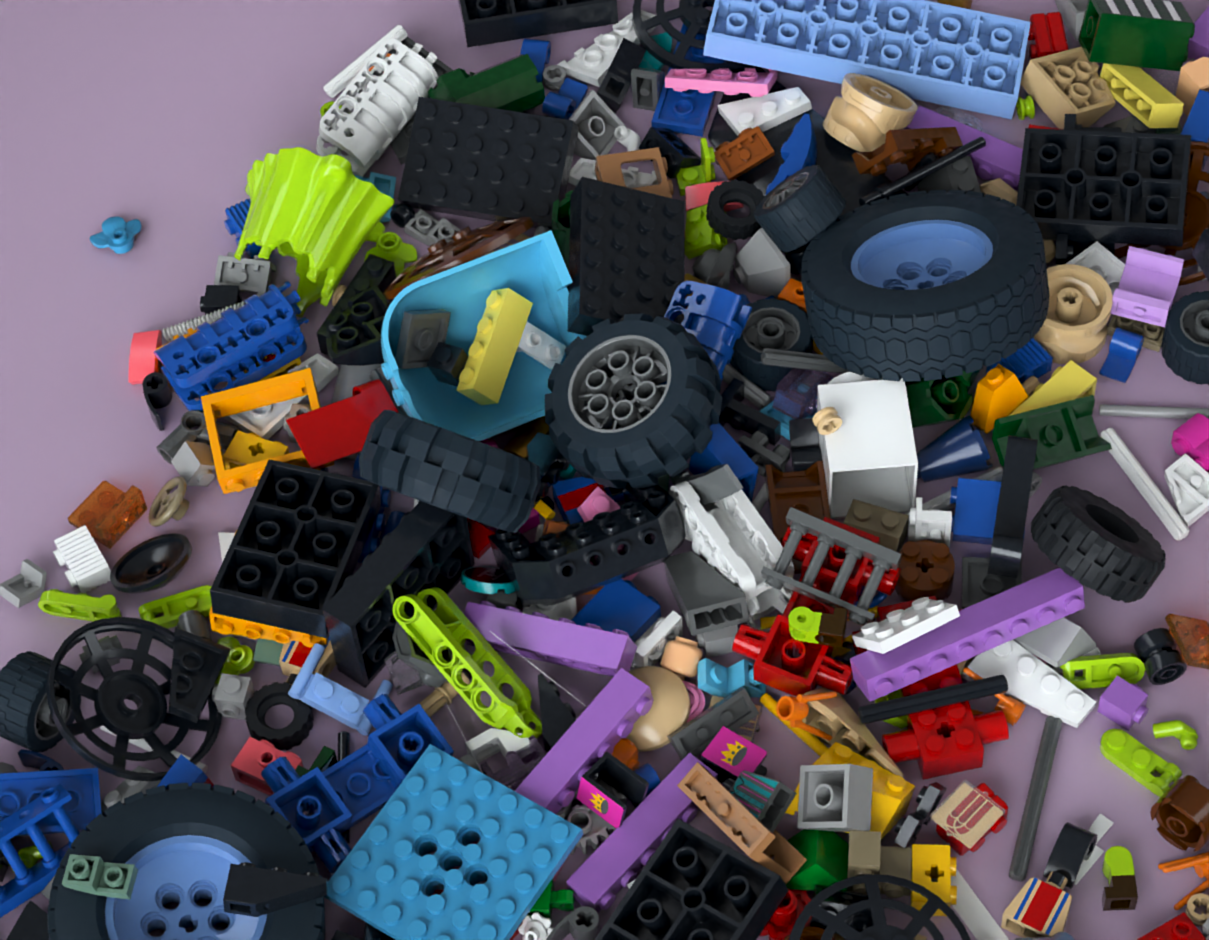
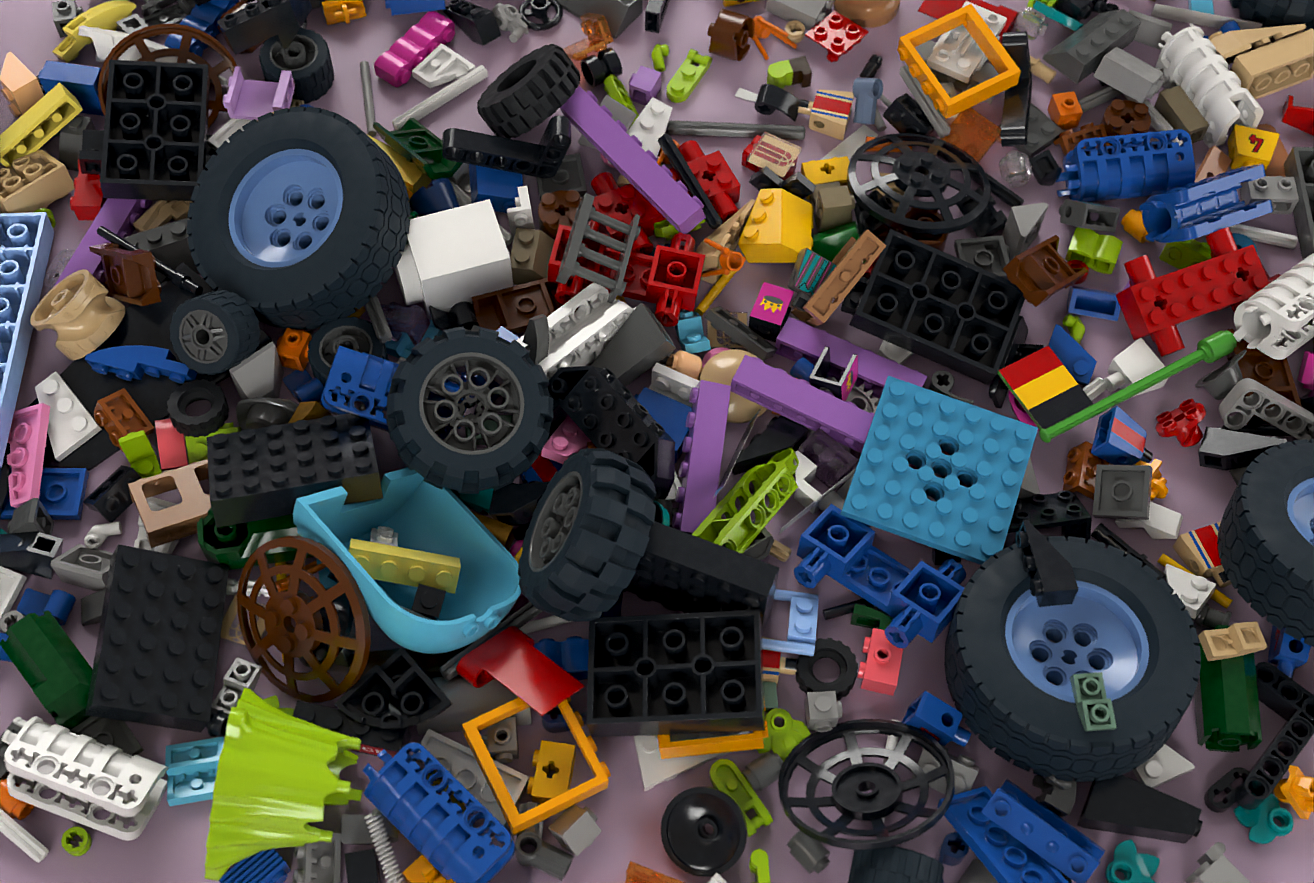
camera: 110 degrees left, 5 degrees up
(171, 504) = (625, 829): dark tan piece -> none
(194, 673) = (817, 744): black wing -> none
(818, 627) = (659, 249): leg -> none
(827, 420) = (465, 259): tan bush -> none
(835, 797) = (802, 219): light grey slope -> none
(905, 625) = (640, 192): white plate -> none

